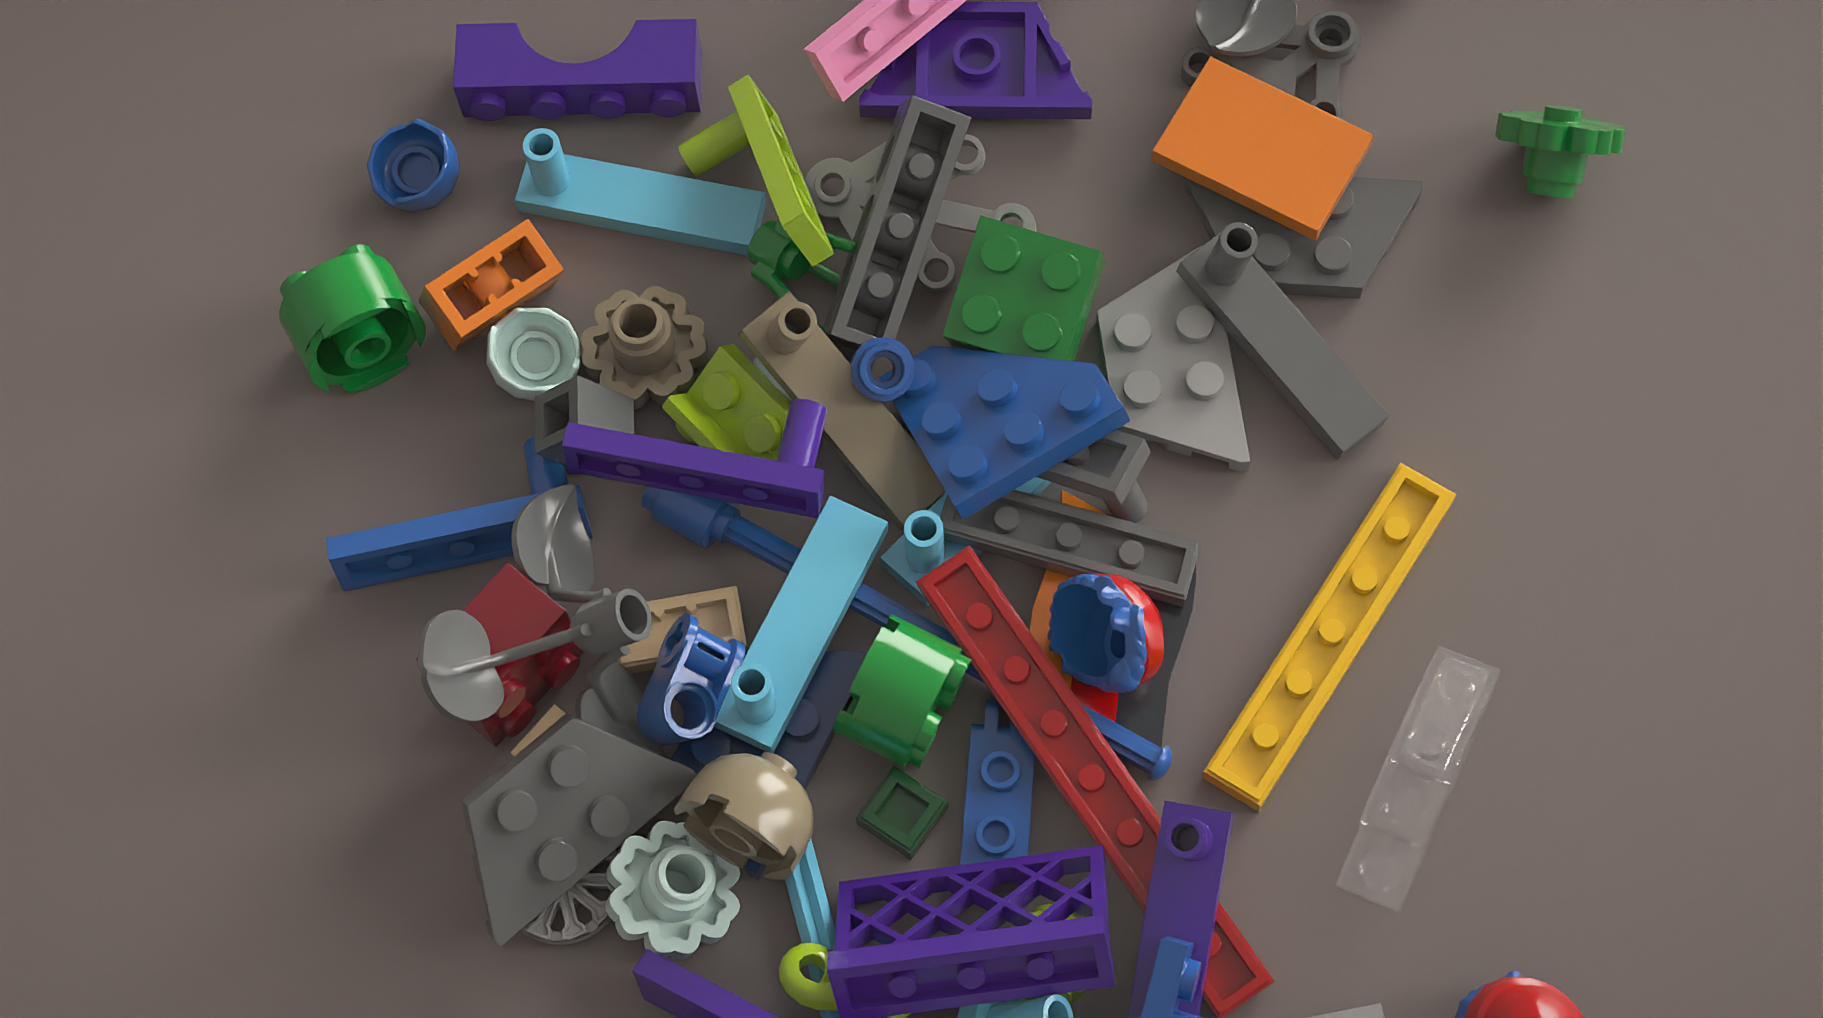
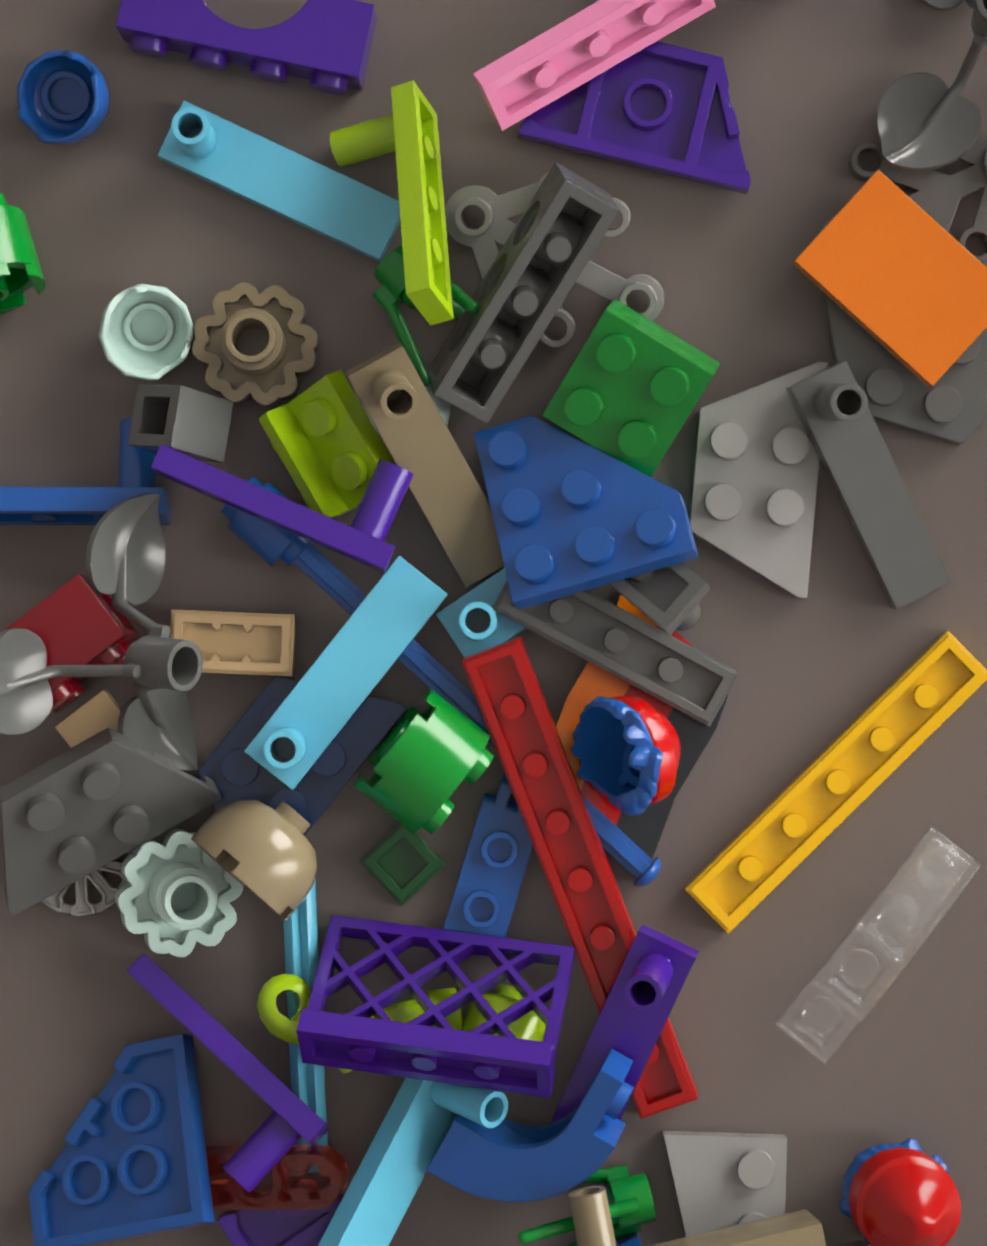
camera: 10 degrees right, 20 degrees up
(490, 284) = (117, 252): orange brick -> none
(696, 673) = (234, 709): blue piece -> none
(901, 375) = (476, 457): blue plate -> none

